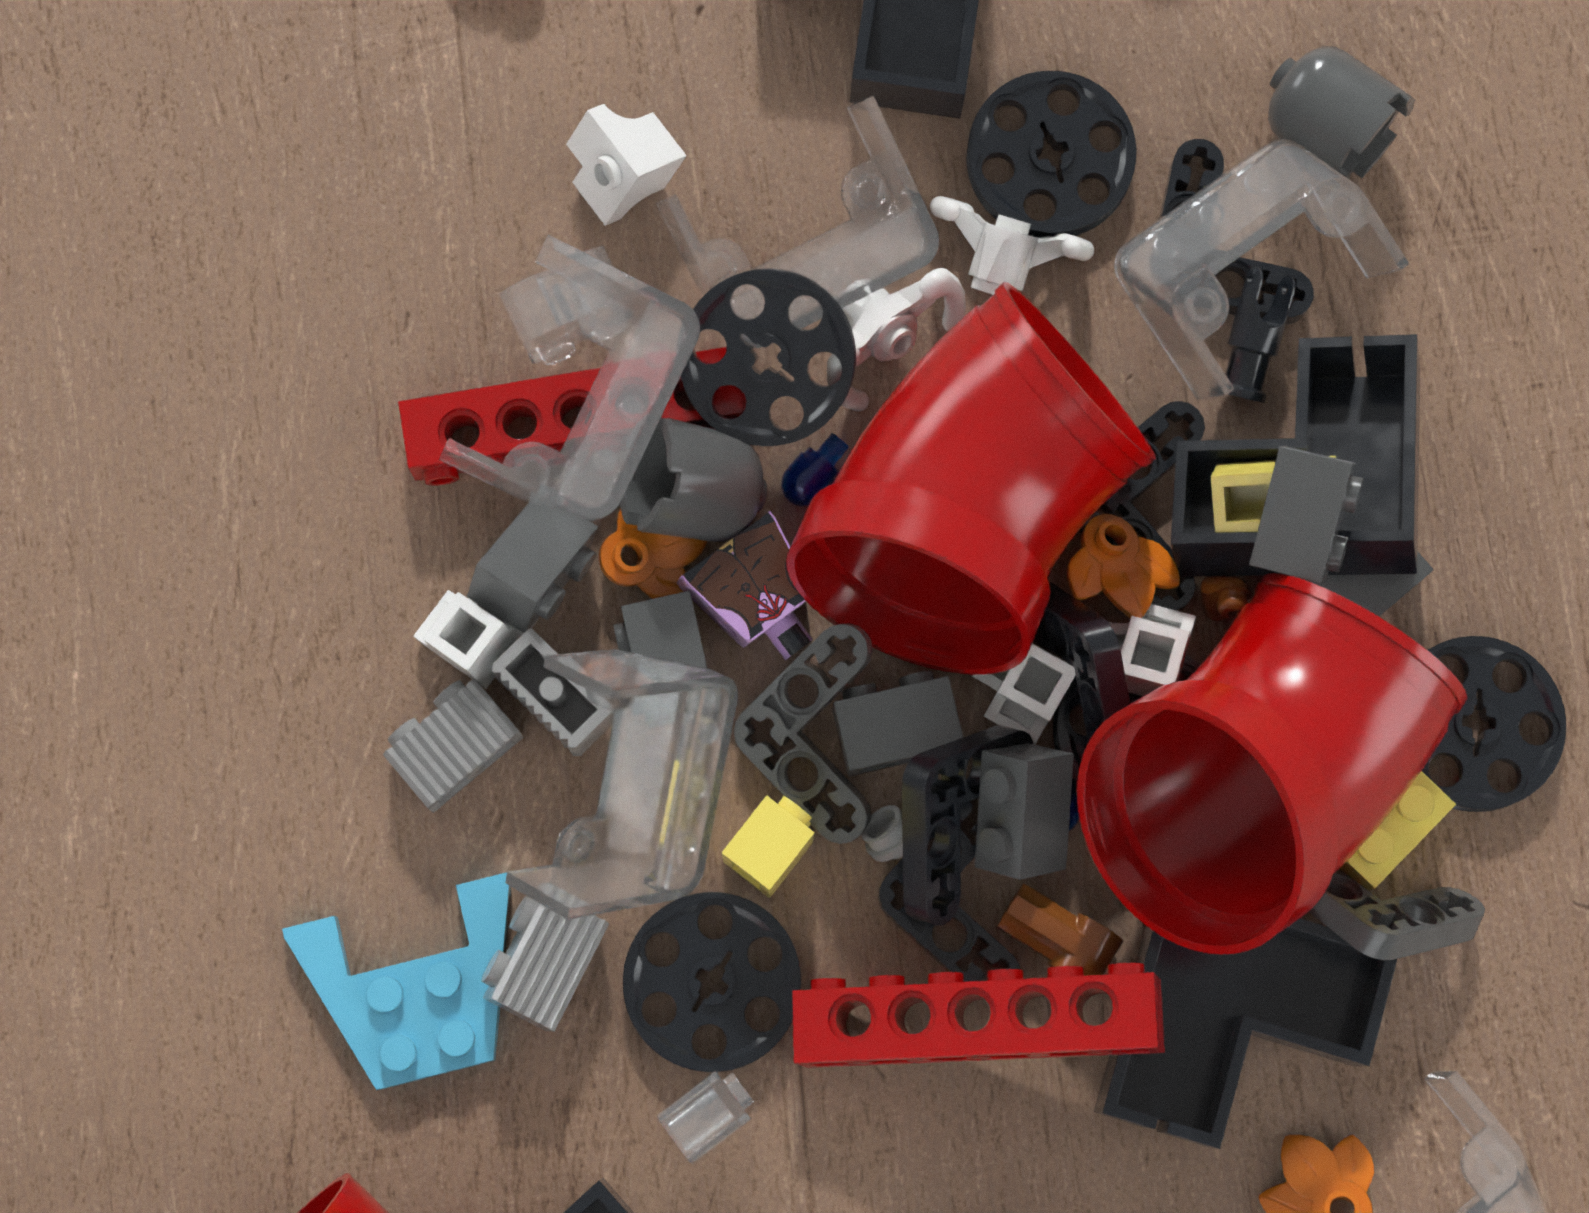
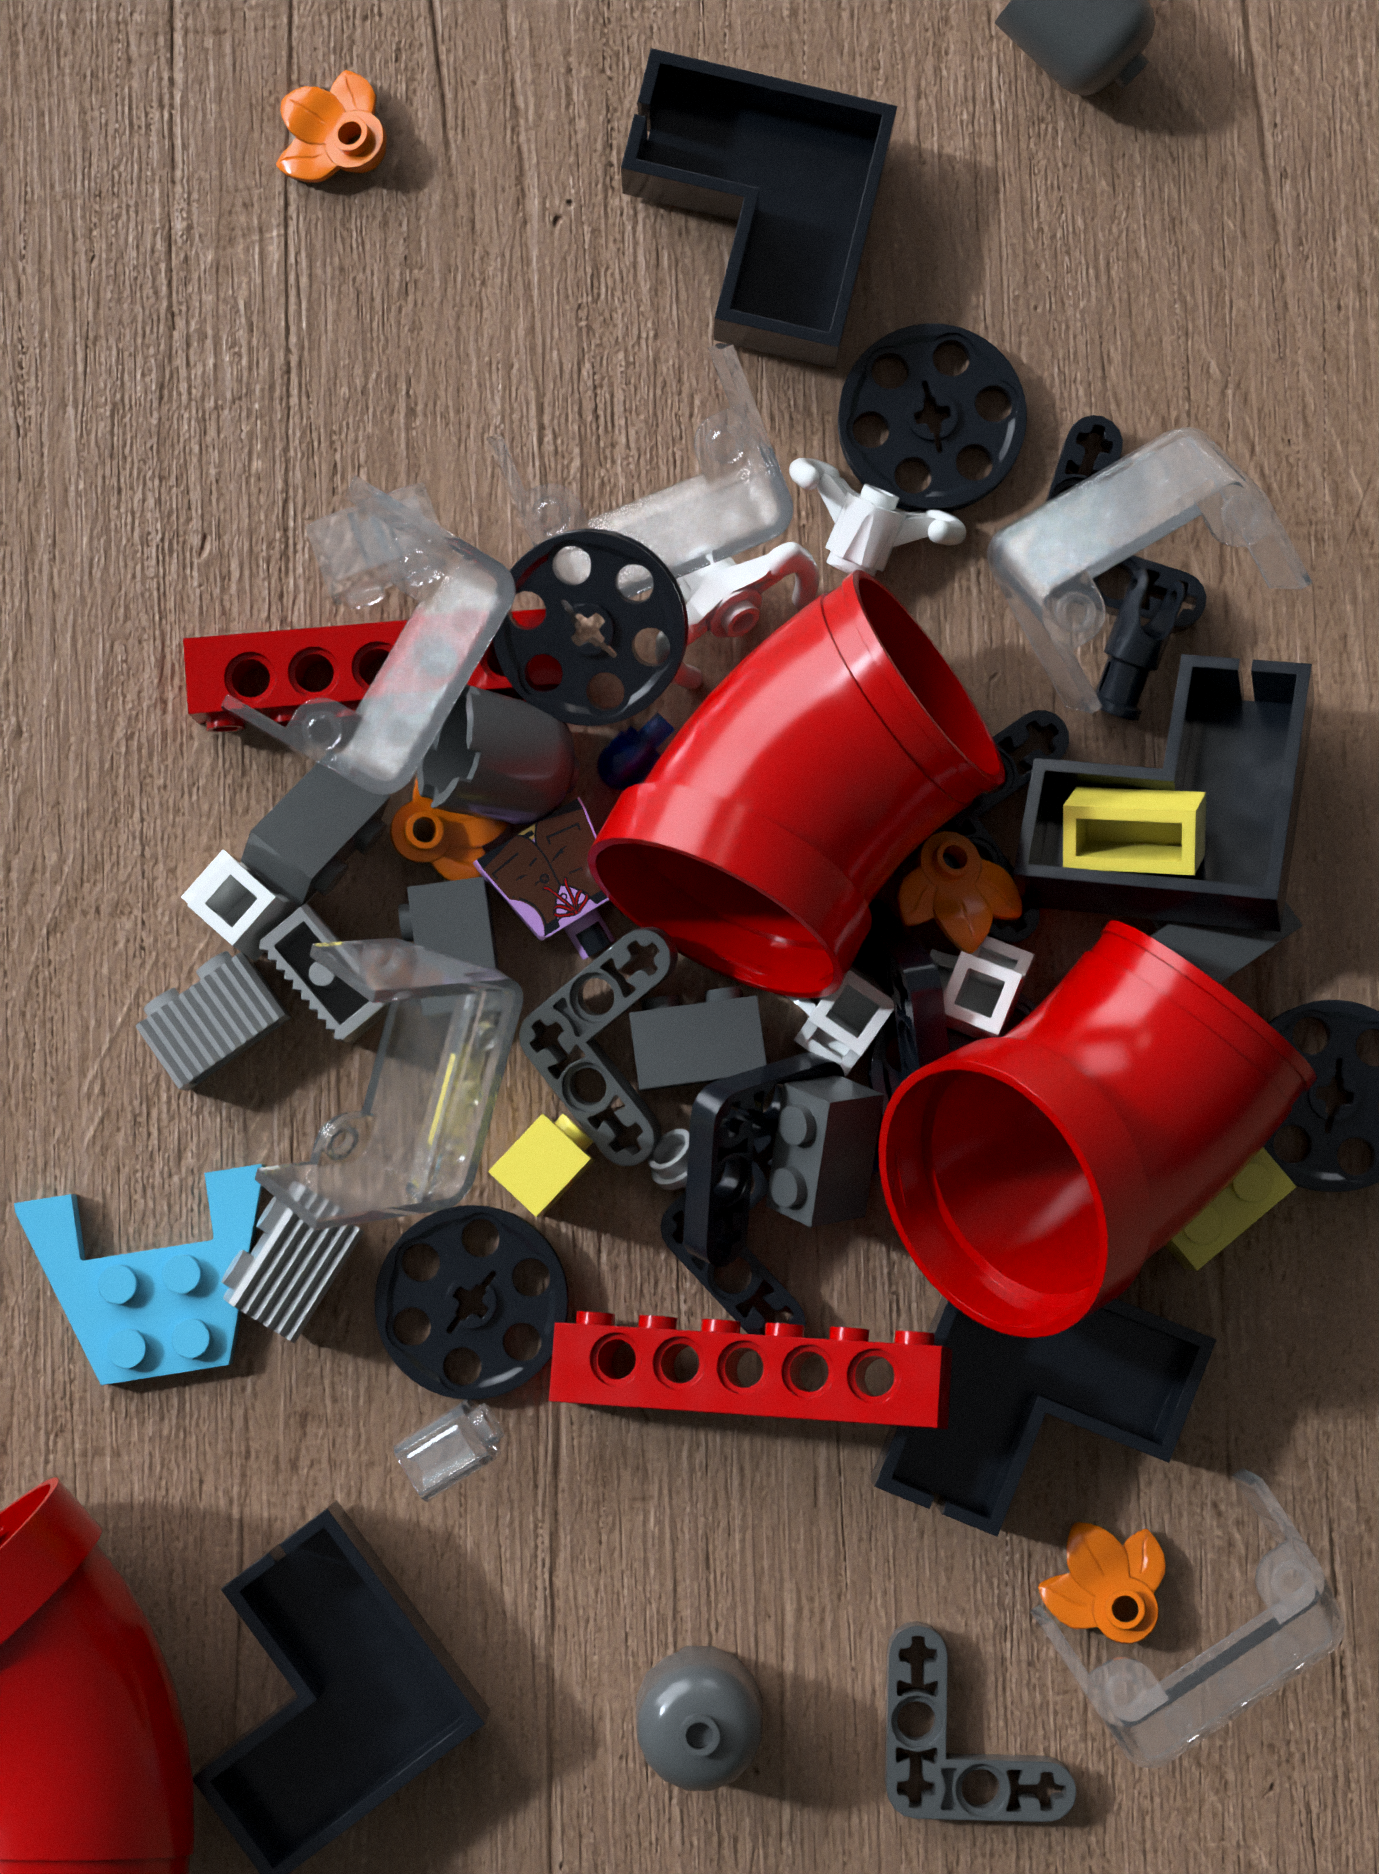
camera: 10 degrees right, 5 degrees up
(622, 160) = (453, 386): white brick -> none
(1059, 933) = (858, 1293): dark orange piece -> none
(1223, 595) = (1069, 933): dark orange arm -> none
(1305, 514) = (1160, 860): dark grey piece -> none
(1336, 108) = (1252, 398): dark grey cylinder -> none
(1397, 924) = (1235, 1309): dark grey beam -> none

